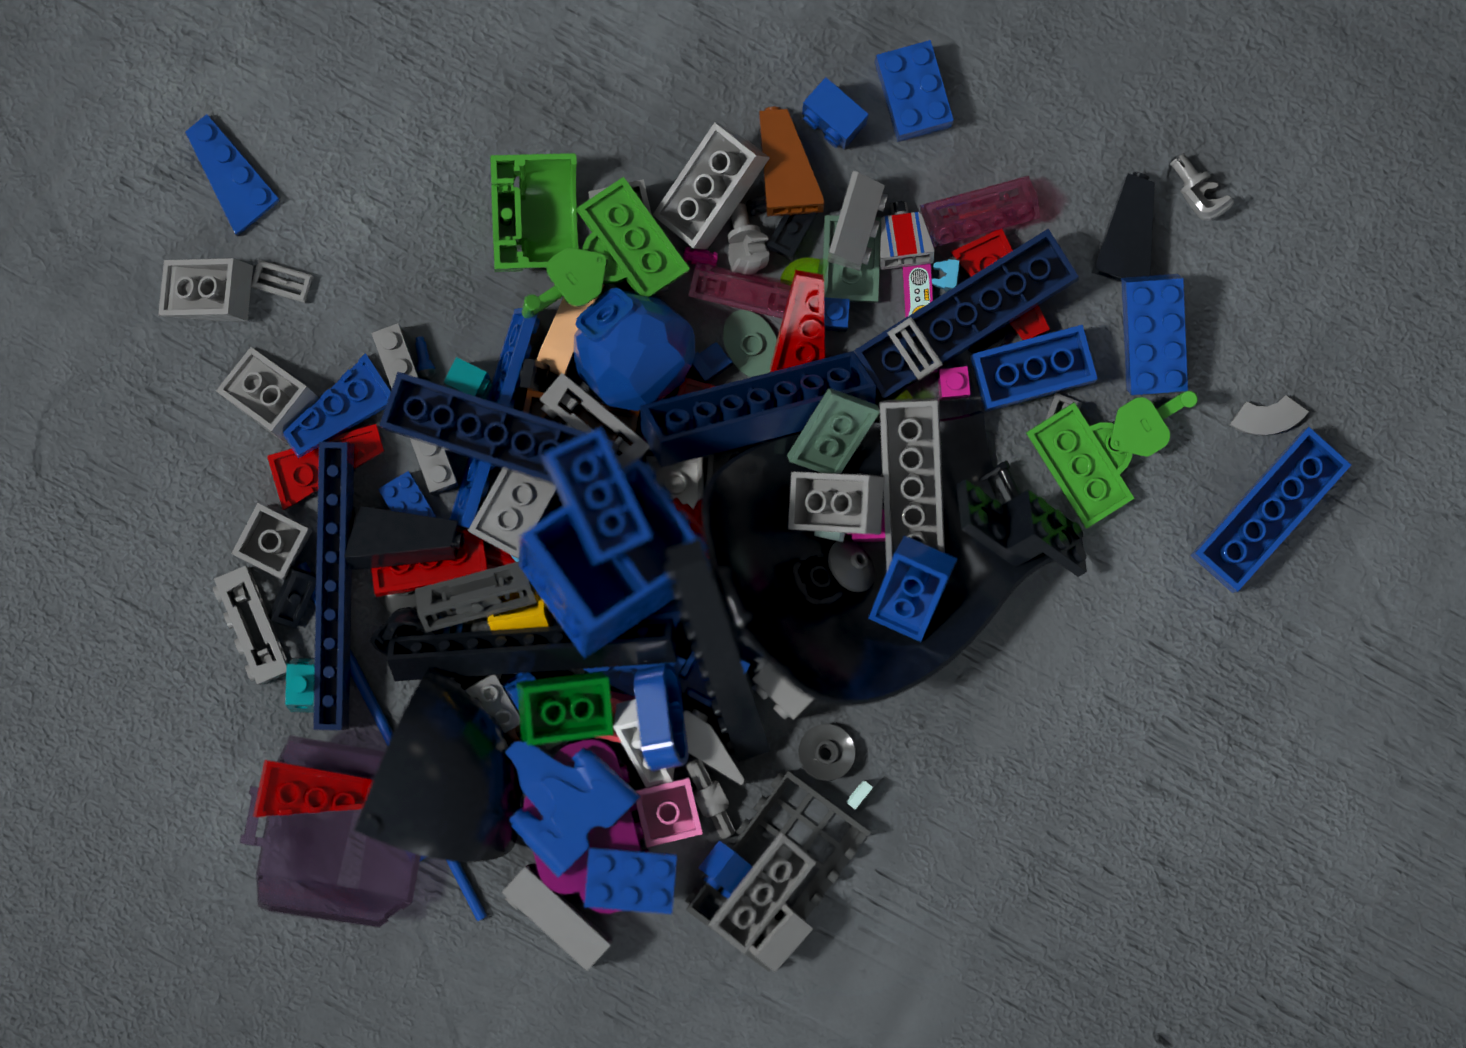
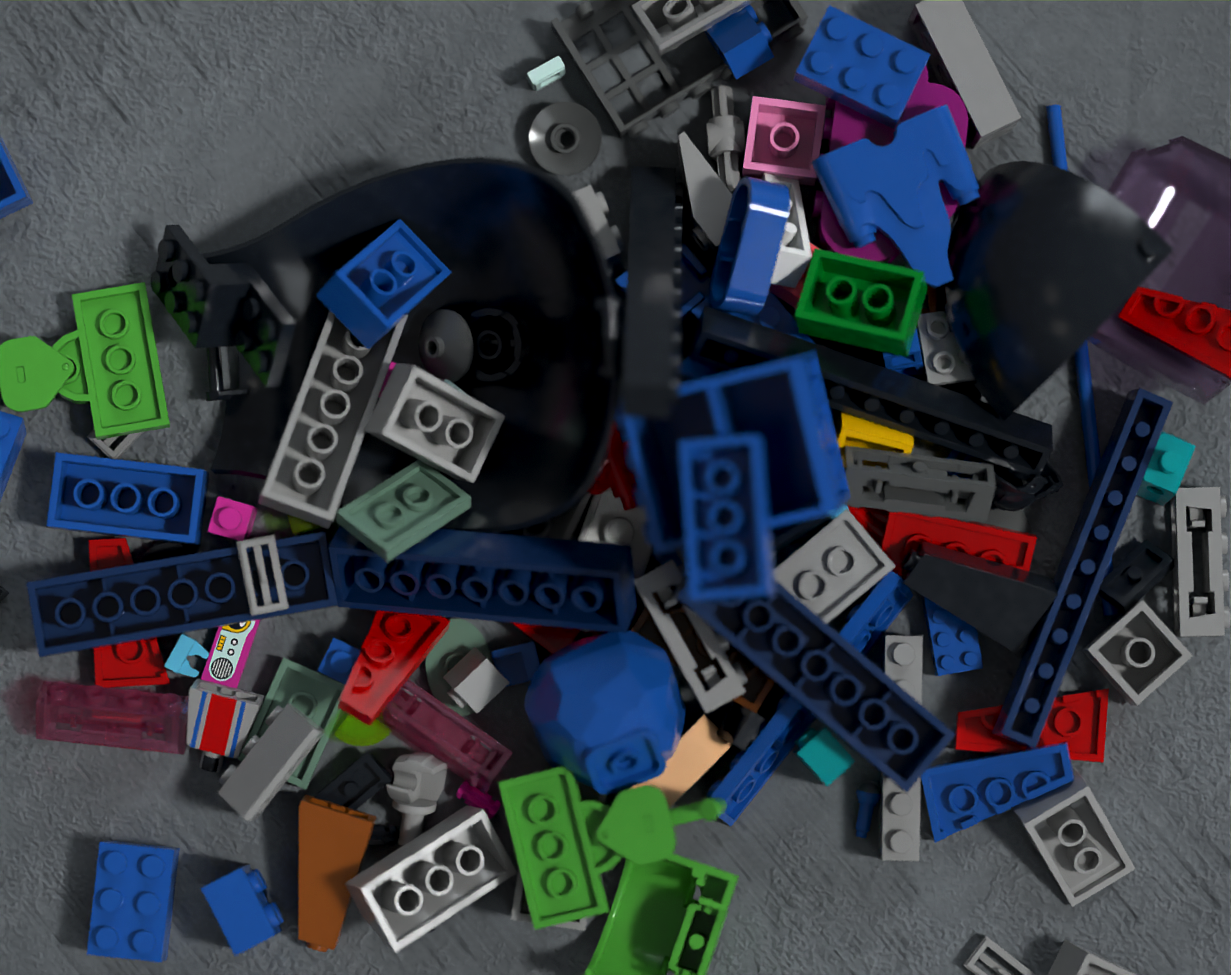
camera: 160 degrees left, 0 degrees up
(735, 336) = (474, 681): none -> light grey brick

